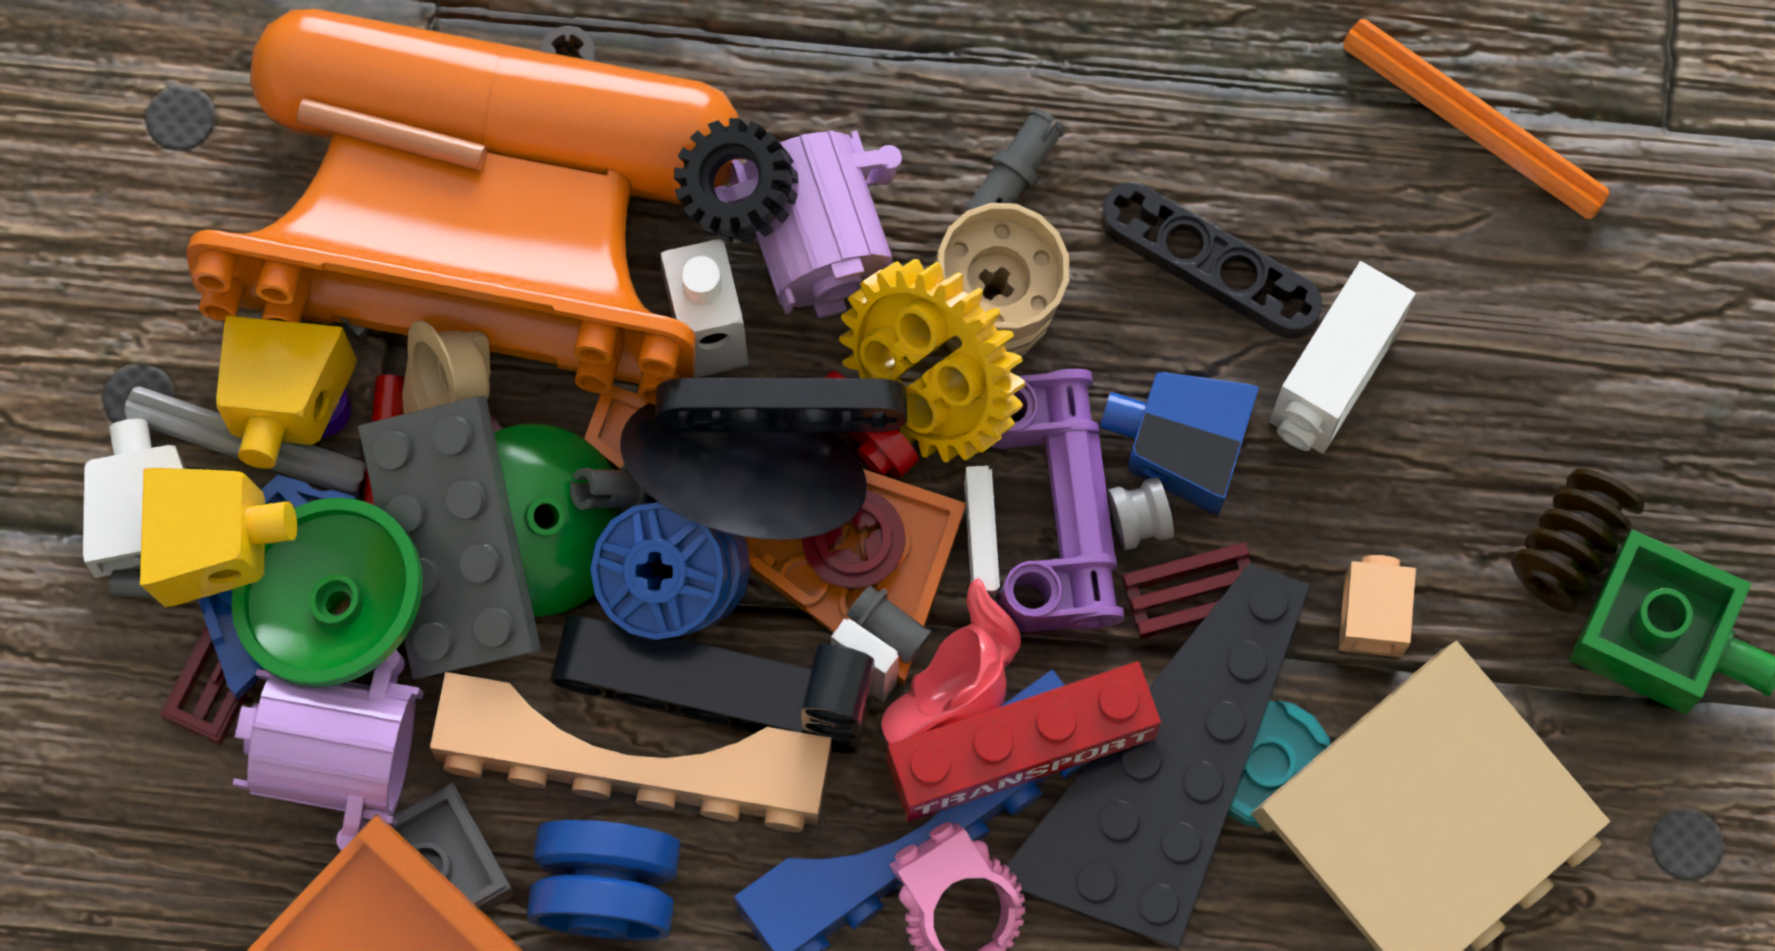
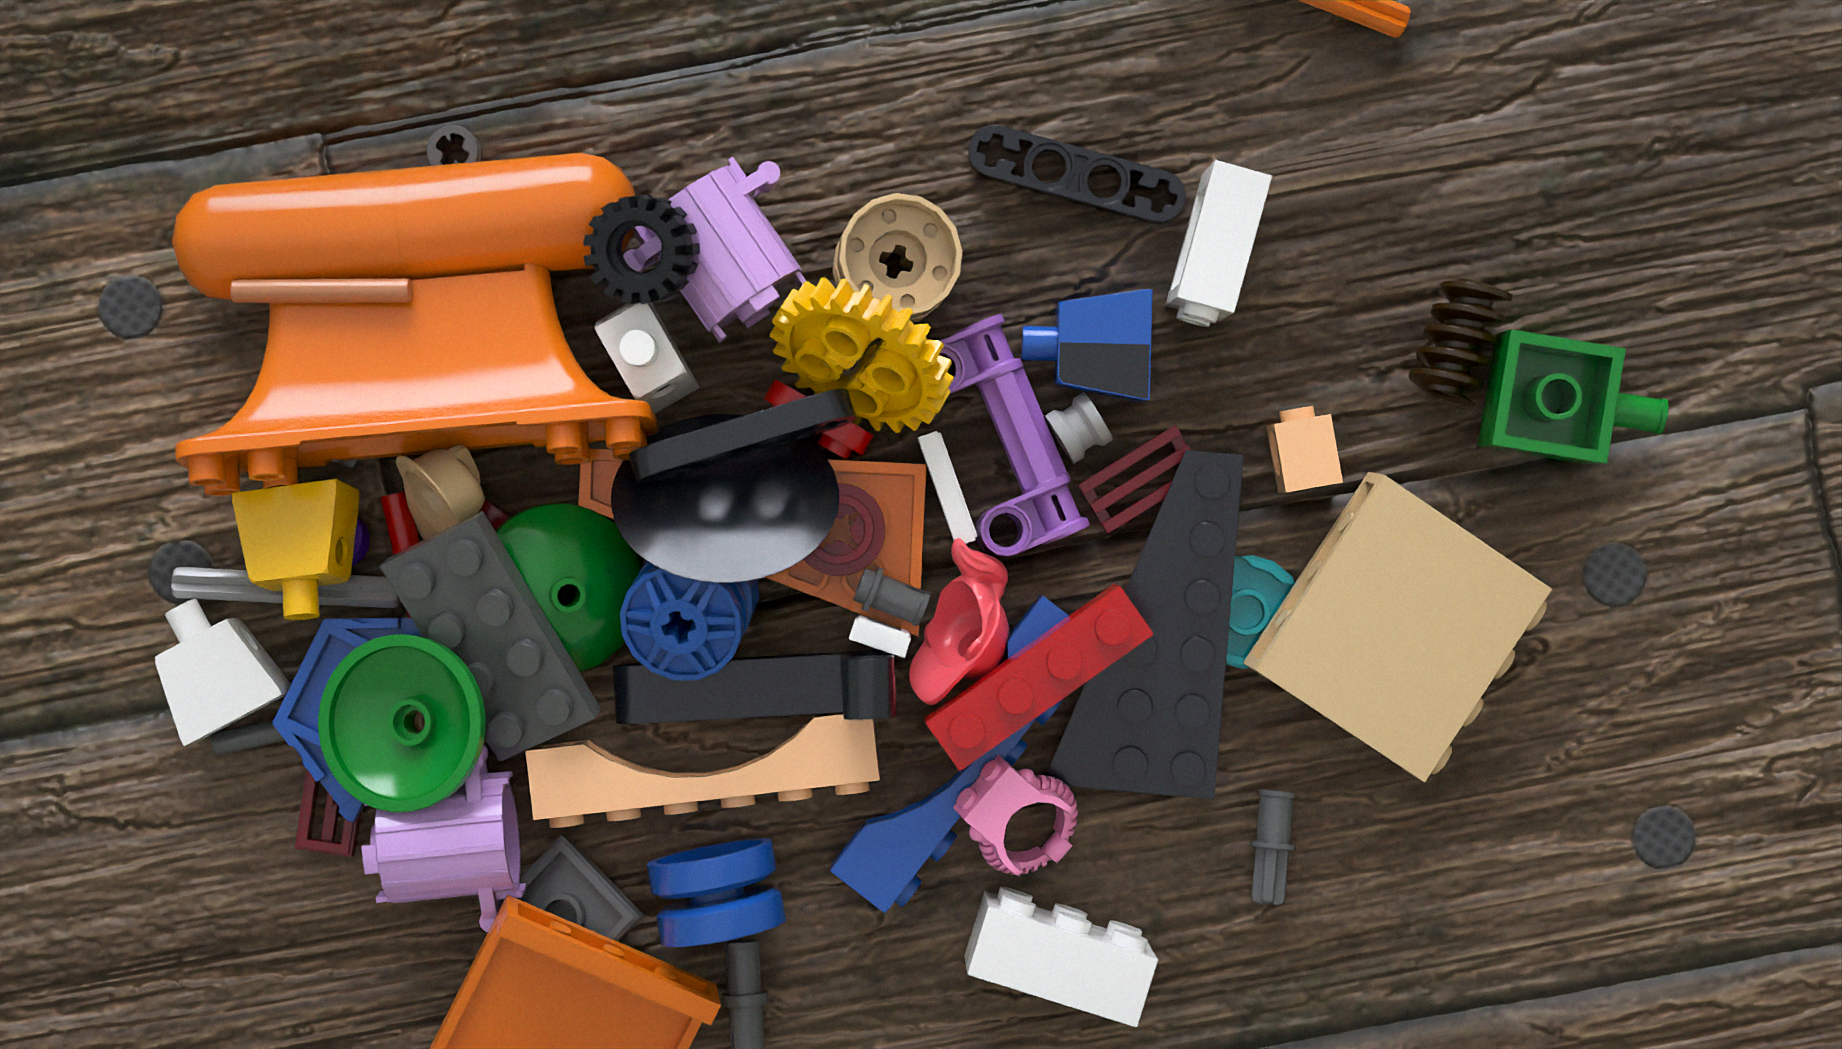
camera: 10 degrees left, 15 degrees up
(206, 532) = (279, 702): yellow torso -> none
(607, 490) = (608, 555): dark grey pin -> none
(1017, 165) = (880, 142): dark grey pin -> none

